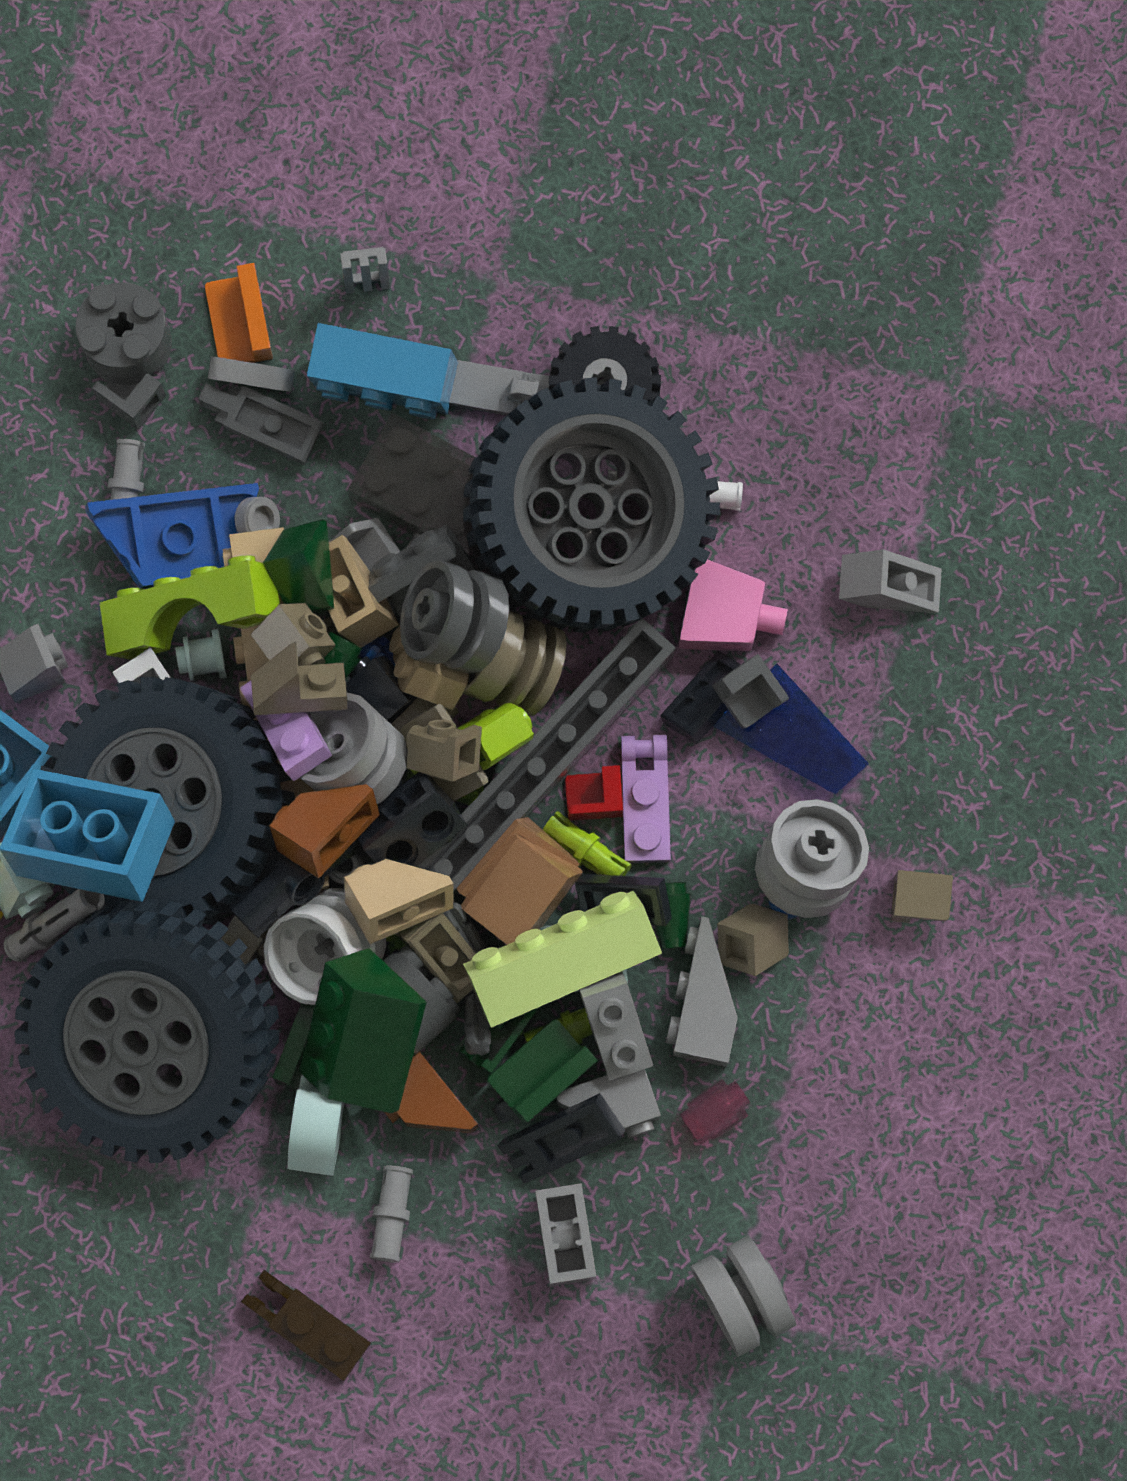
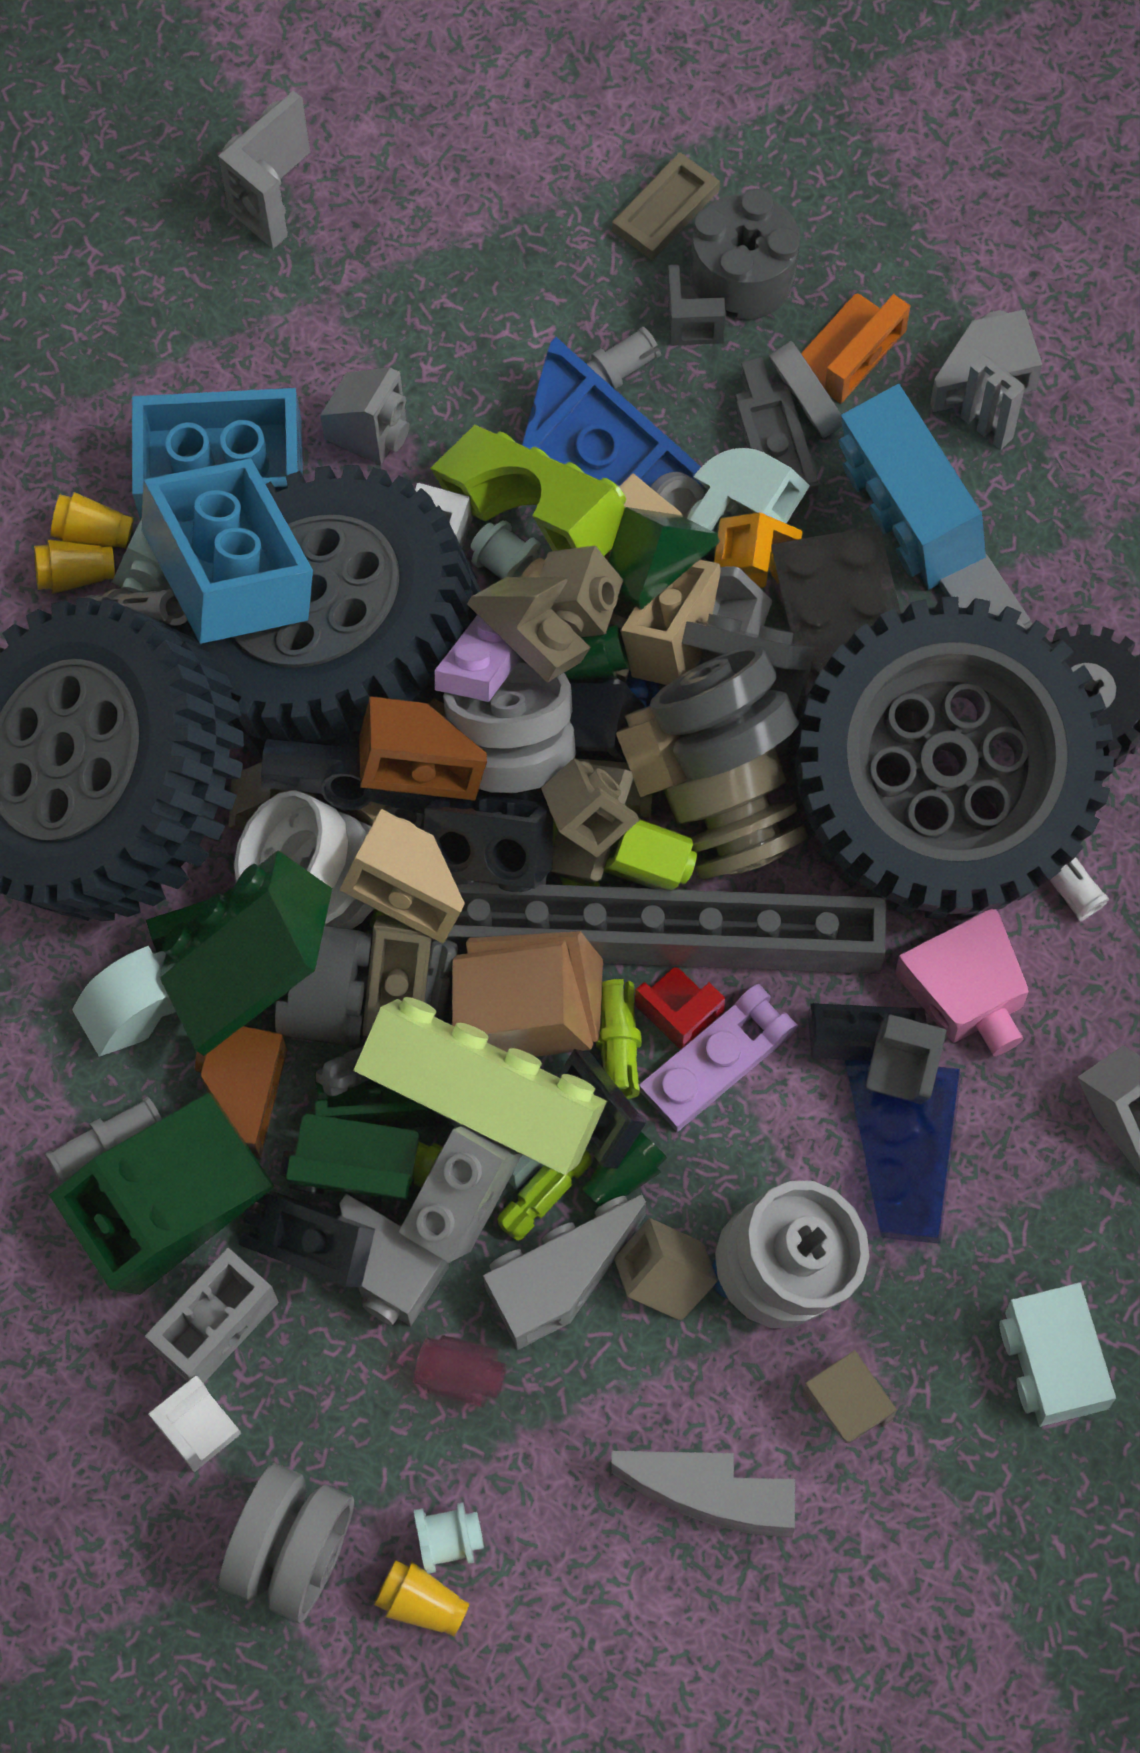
camera: 55 degrees right, 10 degrees down
(36, 350) = (666, 206): none -> dark tan tile
(289, 470) = (746, 483): none -> light aqua brick
(324, 234) = (1002, 338): none -> light grey slope
(334, 502) = (748, 543): none -> light orange panel
(462, 1204) = (161, 1194): none -> dark green slope
(620, 1296) = (194, 1423): none -> white panel
(644, 982) = (538, 1198): none -> lime axle
(810, 1198) = (448, 1536): none -> light aqua brick
(833, 1244) = (420, 1599): none -> yellow cone
(908, 1021) = (707, 1491): none -> light grey slope
(992, 754) = (1057, 1355): none -> light aqua brick

